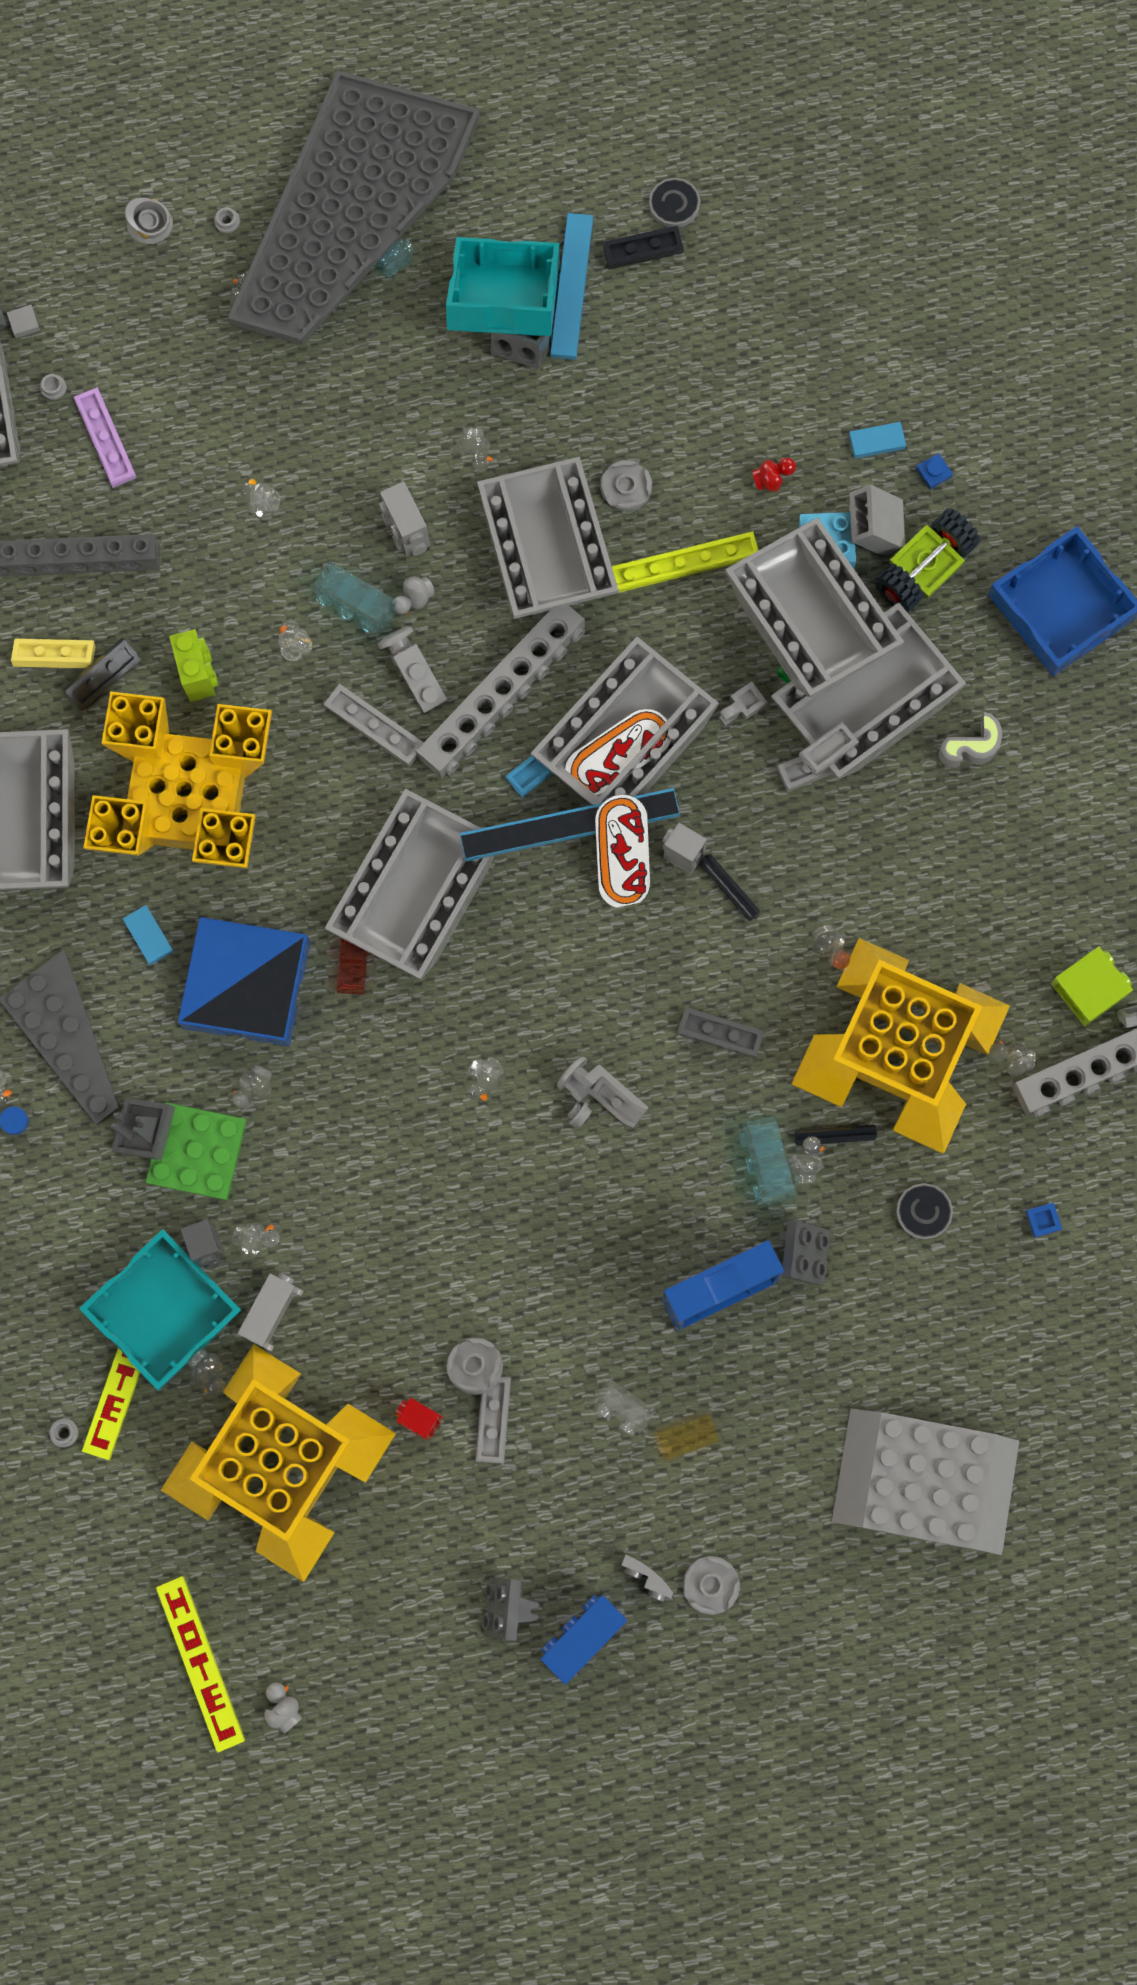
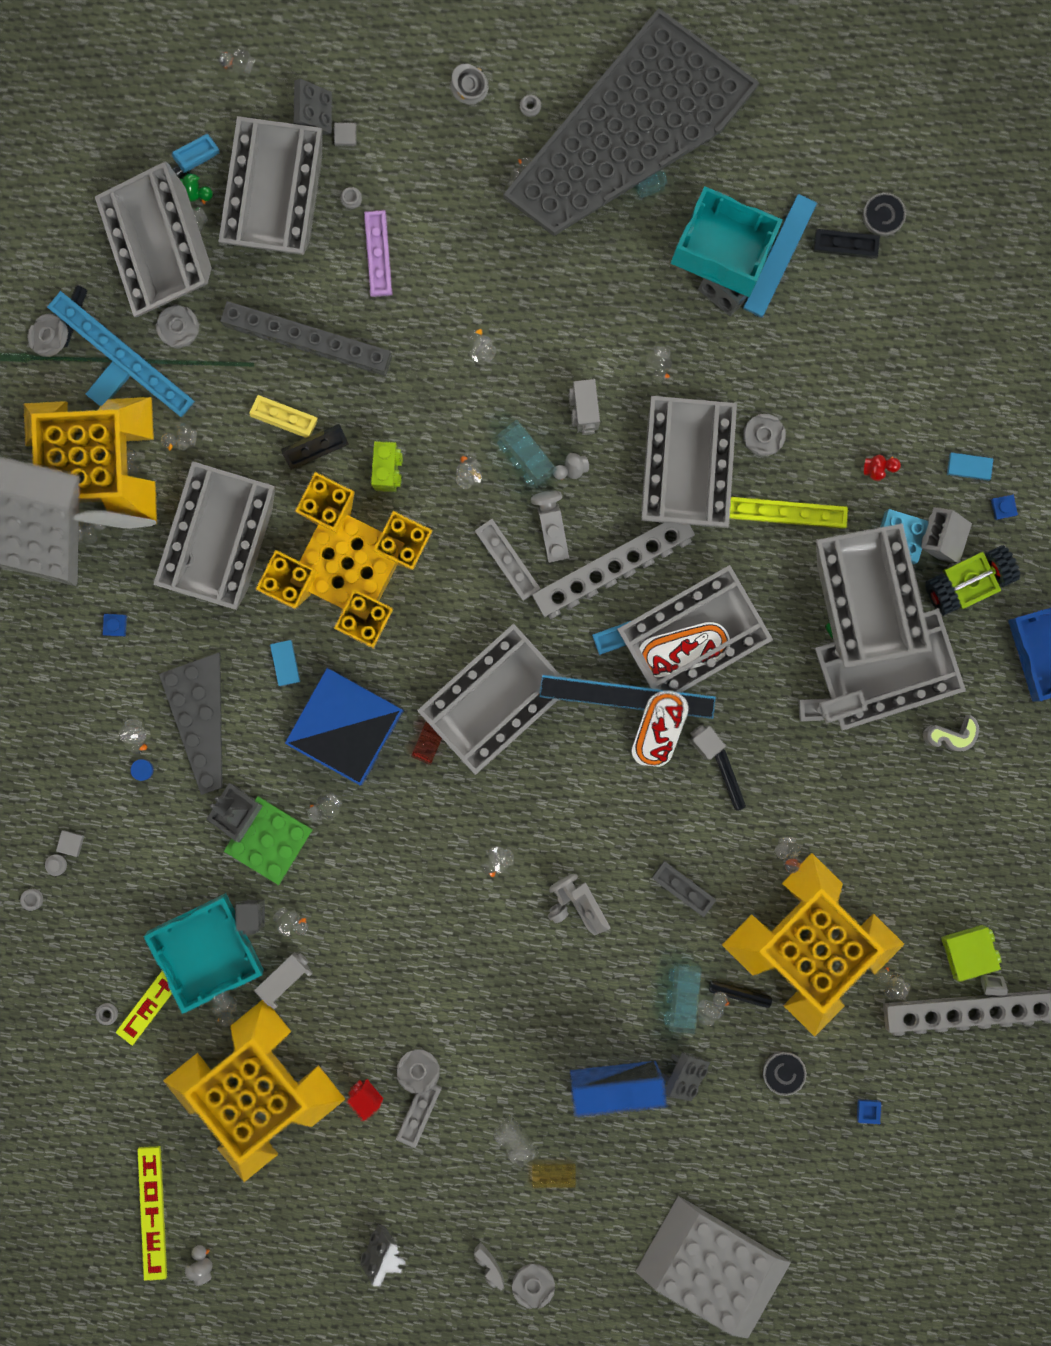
camera: 15 degrees right, 10 degrees up
(582, 1638) = (428, 1297): blue brick -> none
(745, 702) = (793, 642): light grey plate -> none

